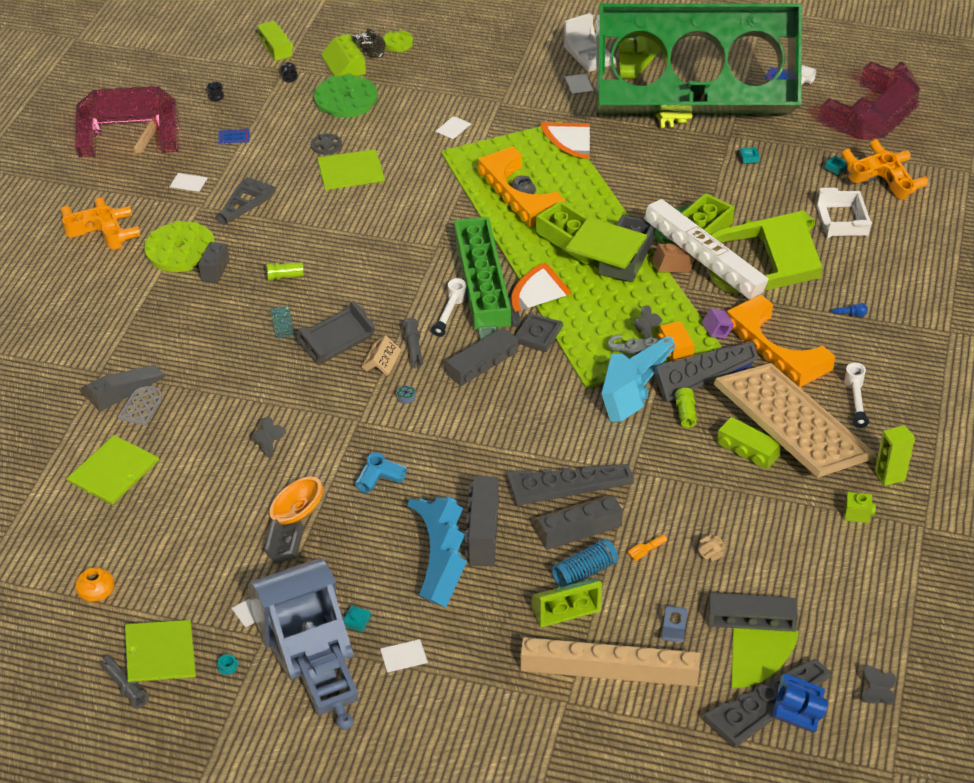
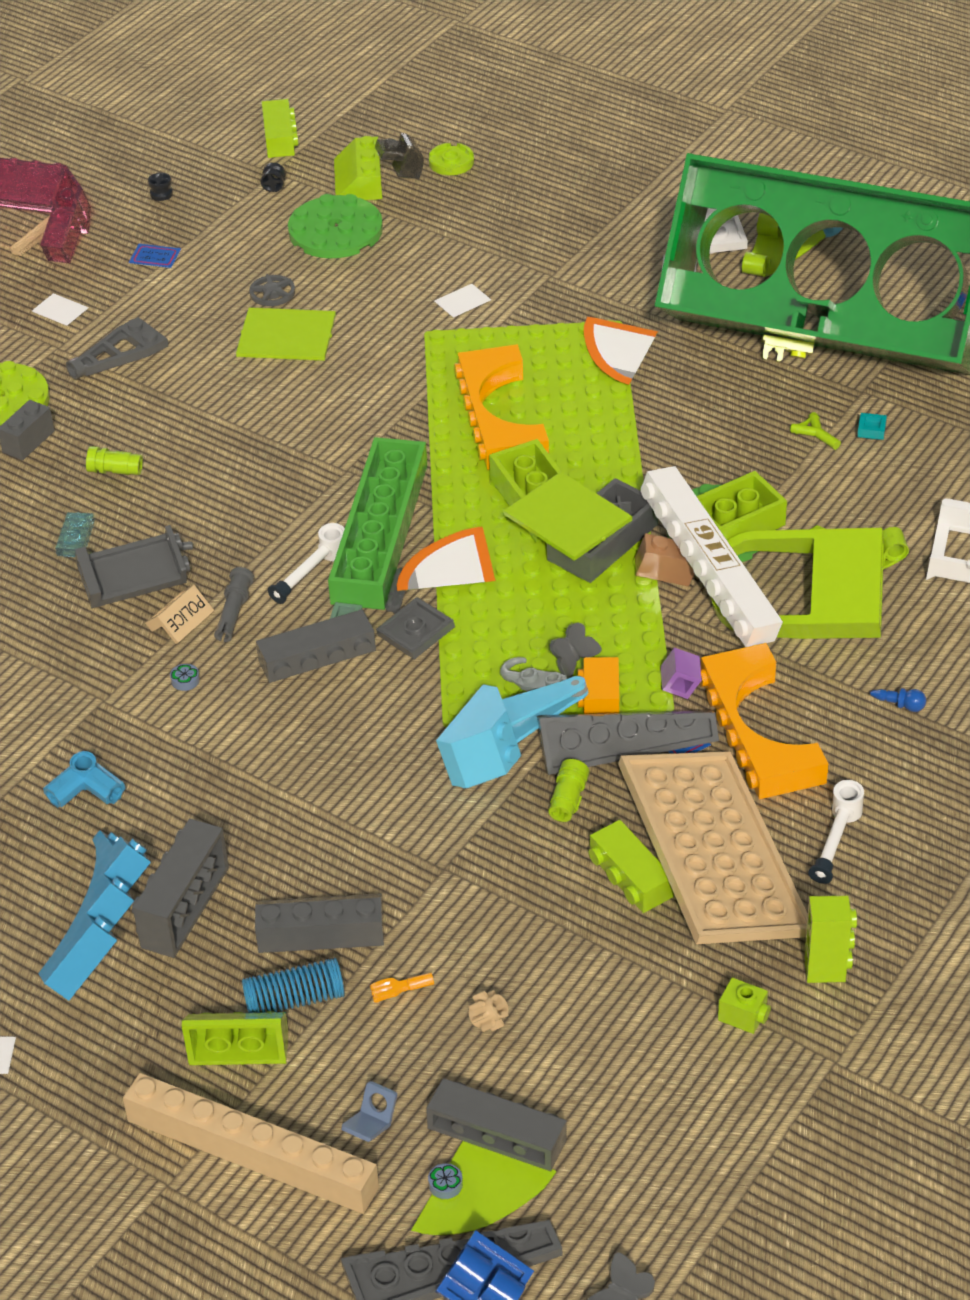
camera: 20 degrees right, 0 degrees up
(524, 184) = (504, 406): dark grey head -> none
(550, 484) = (287, 855): dark grey wing -> none
(714, 163) = (815, 430): none -> lime piece
(738, 653) = (445, 1181): none -> sand blue tile

